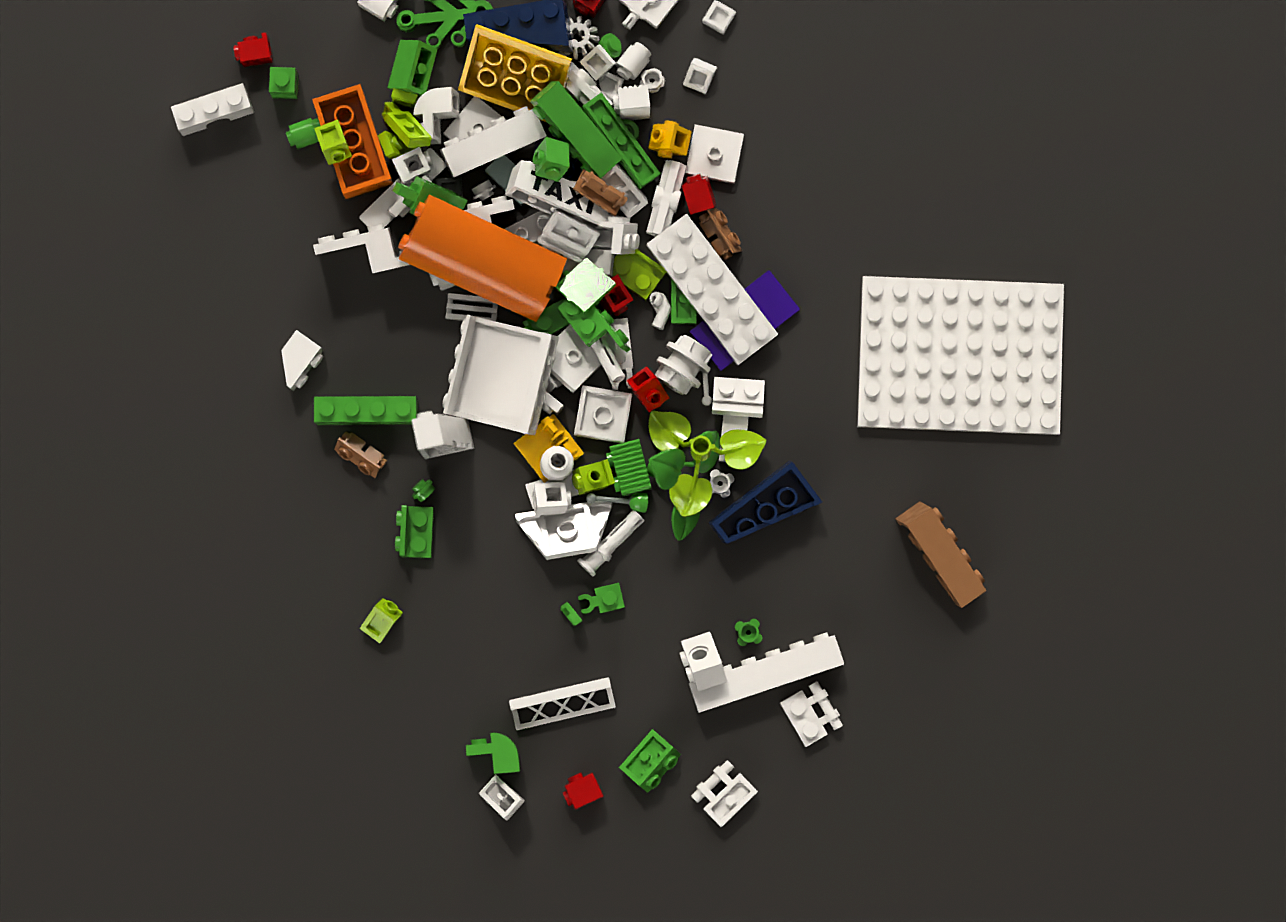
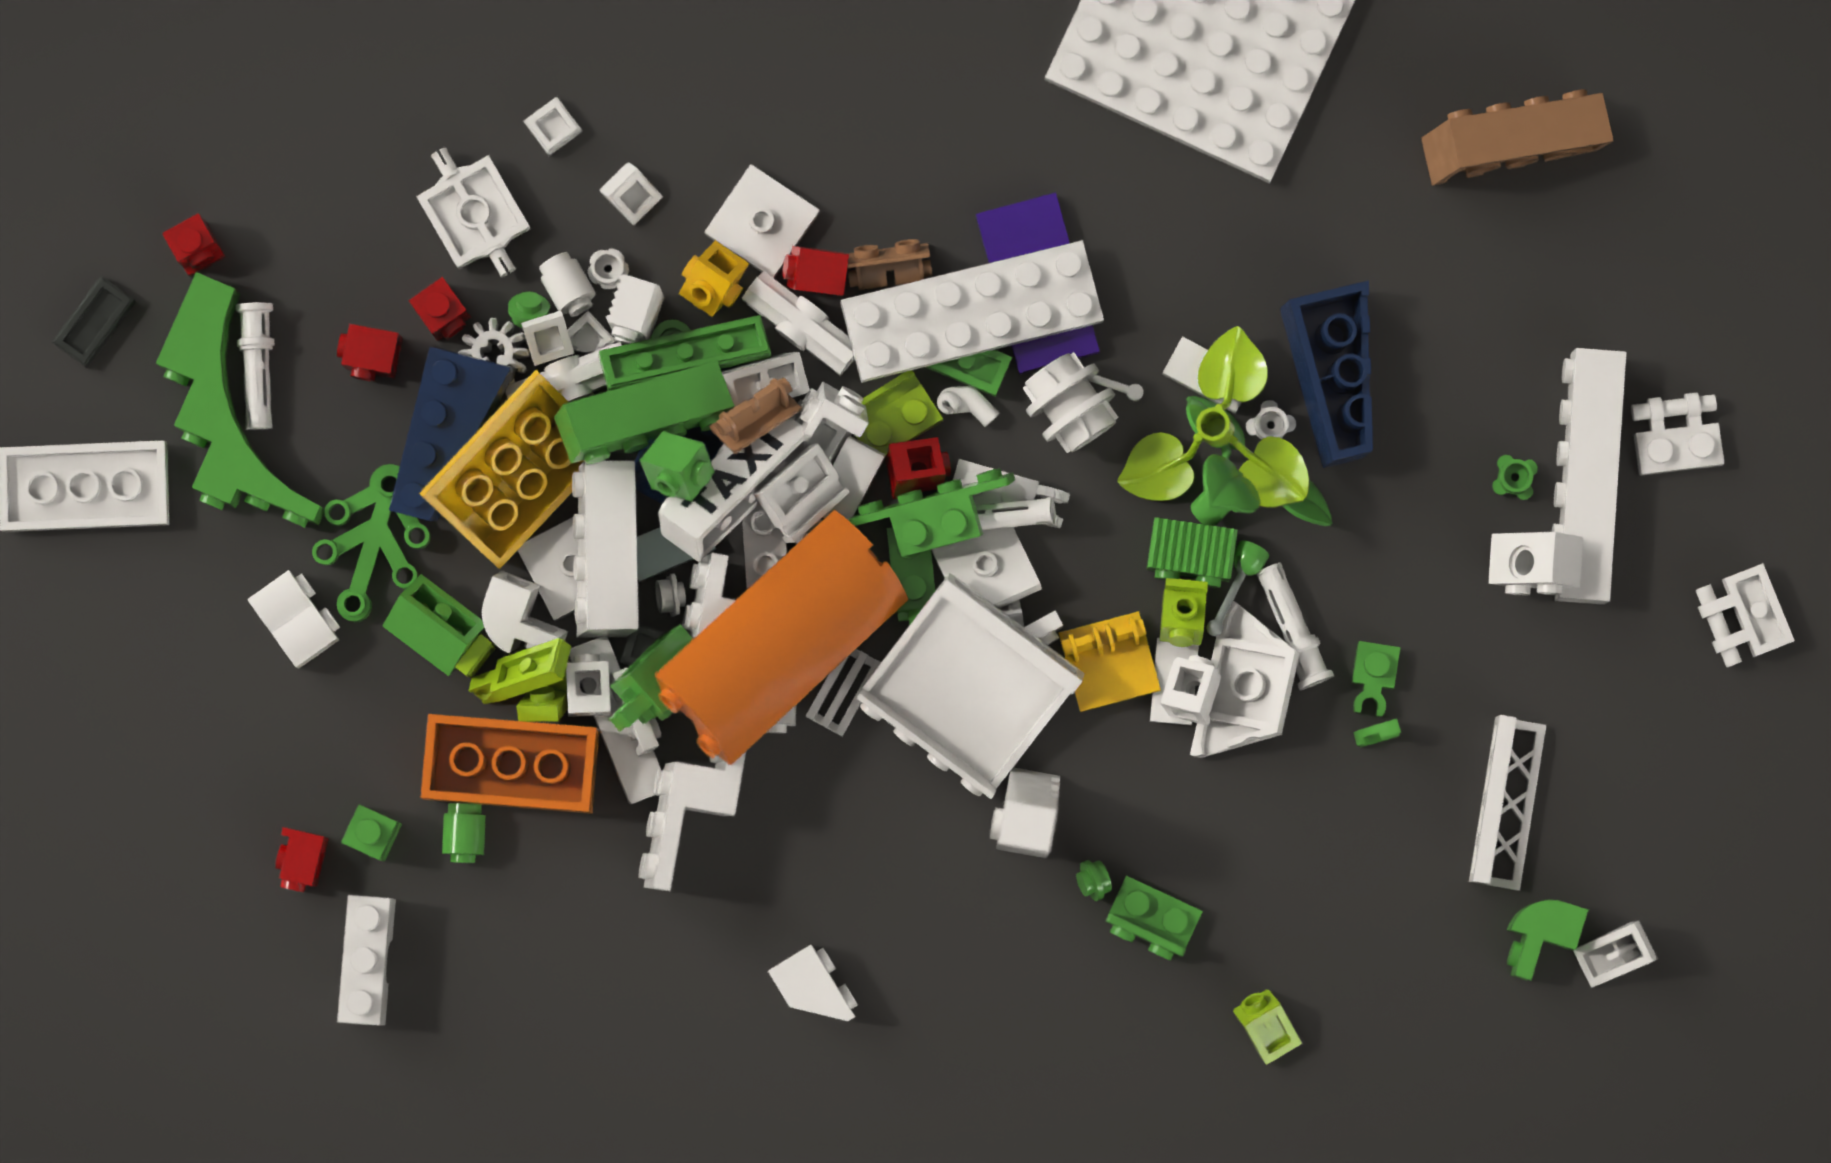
camera: 60 degrees left, 0 degrees up
(333, 142) = (504, 792): lime bracket -> none
(350, 448) = (984, 966): medium nougat hinge -> none
(365, 410) = (935, 915): bright green brick -> none
(549, 467) = (1142, 643): white head -> none
(582, 790) = (1653, 827): red brick -> none
(585, 285) = (888, 499): piece -> none
(603, 414) = (1092, 557): white plate -> none
(648, 389) = (1084, 472): red brick -> none
(650, 761) = (1650, 706): bright green bracket -> none
(738, 397) = (1151, 342): white plate -> none

